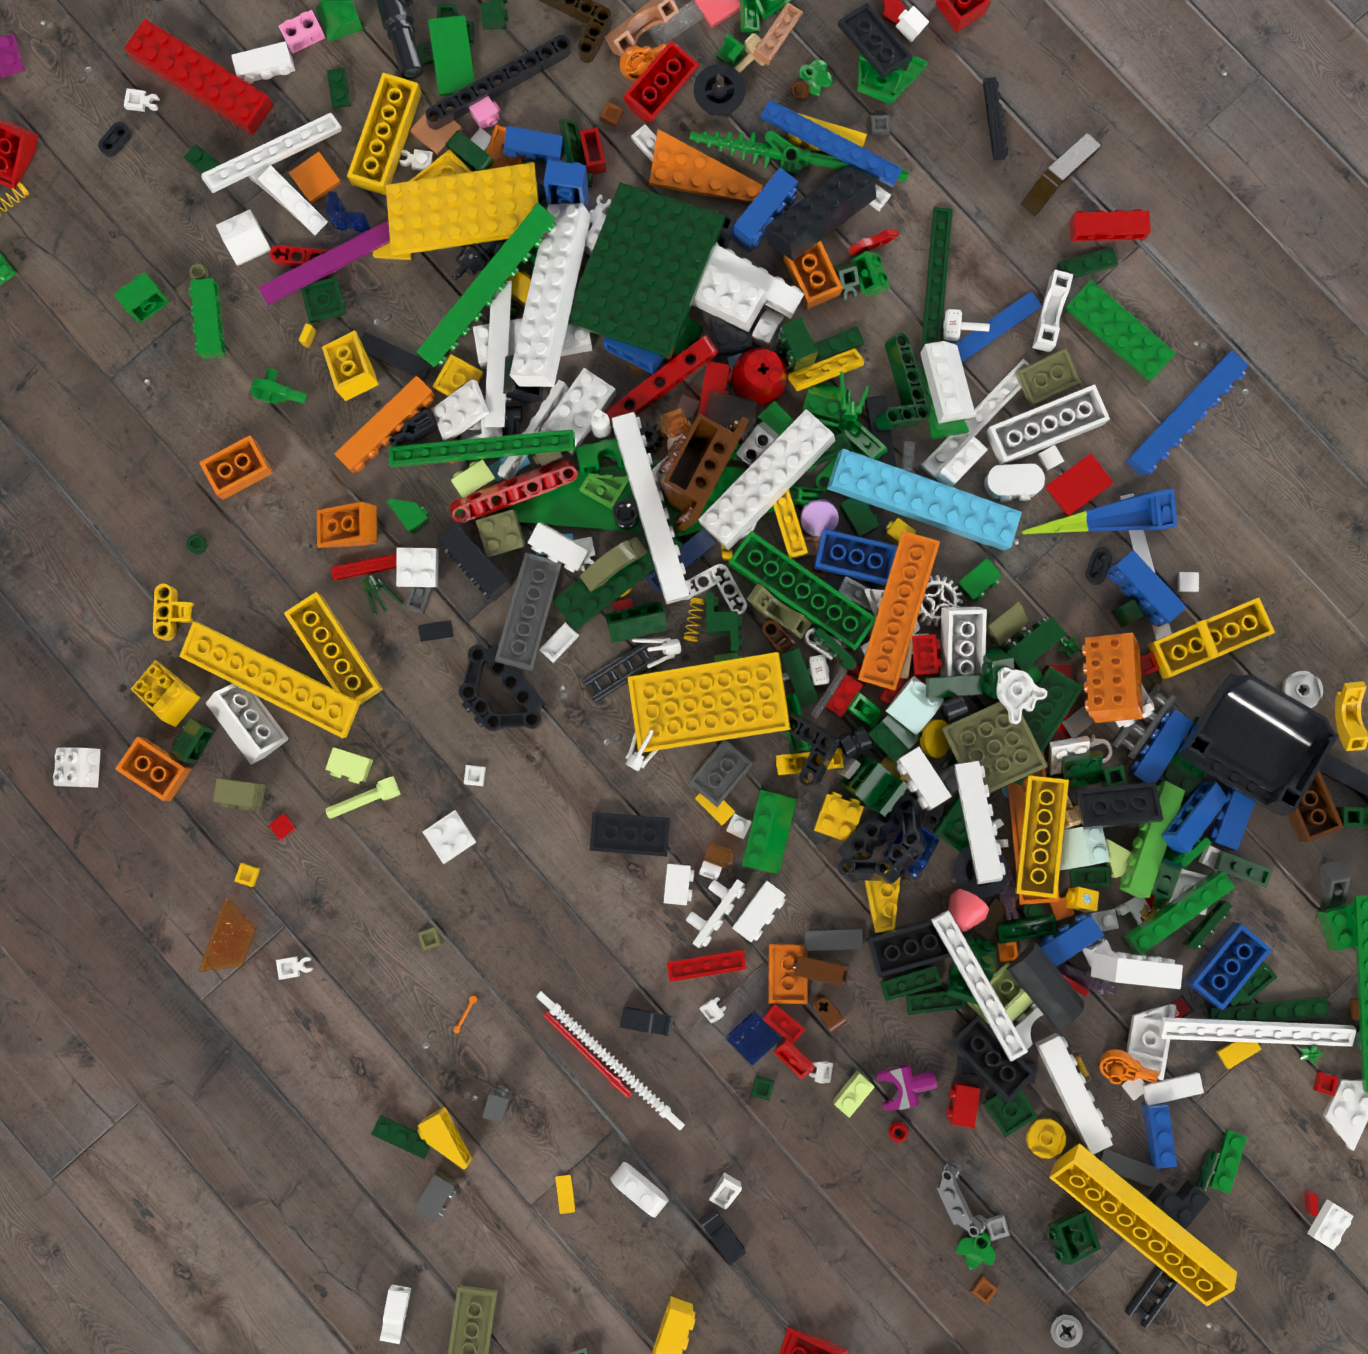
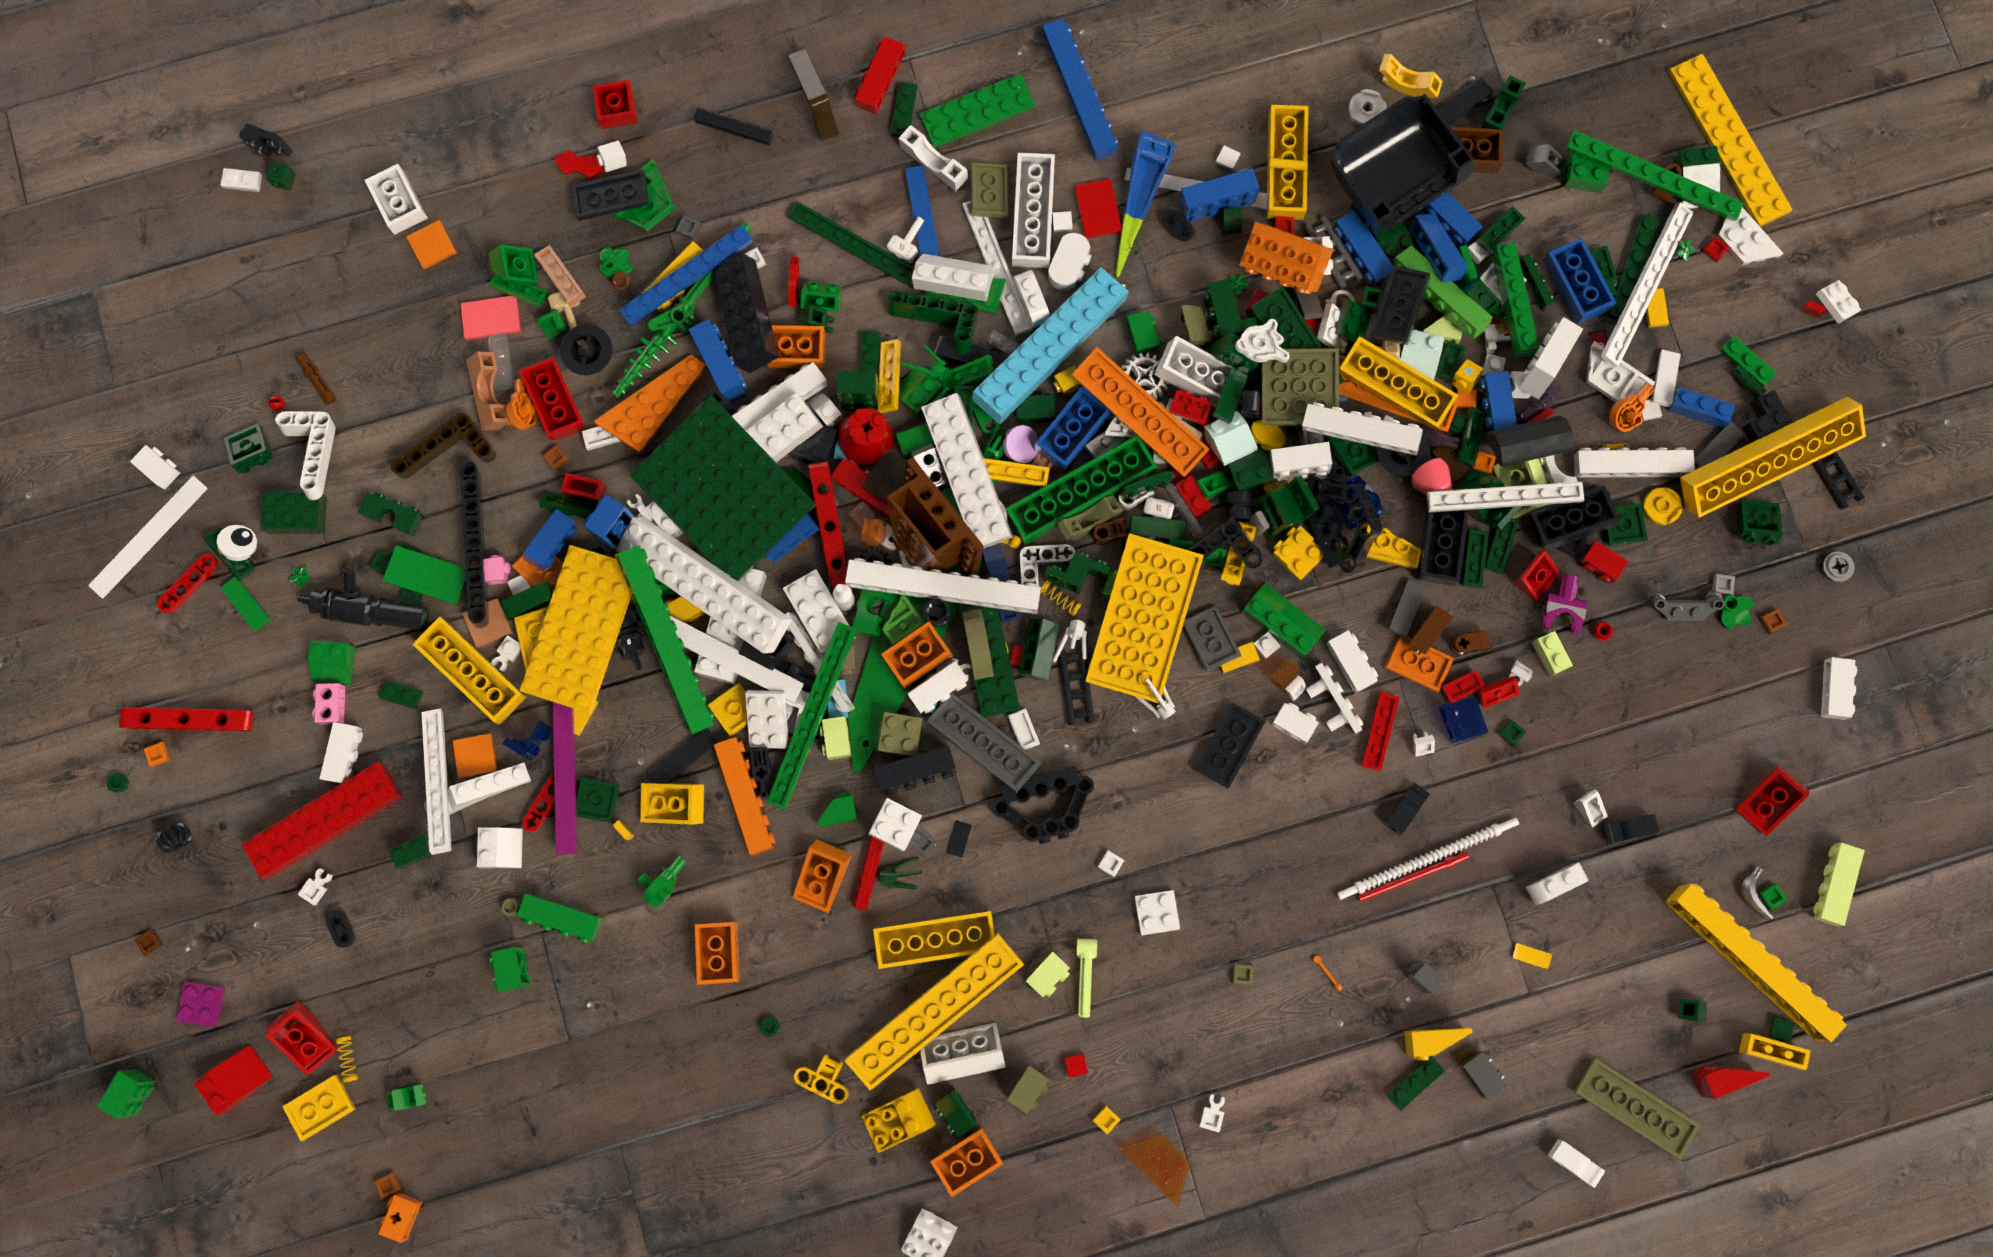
camera: 60 degrees left, 5 degrees down
(513, 491) = (865, 705): red beam -> none
(578, 515) = (917, 655): none -> orange brick
(921, 1048) = (1537, 576): none -> red slope

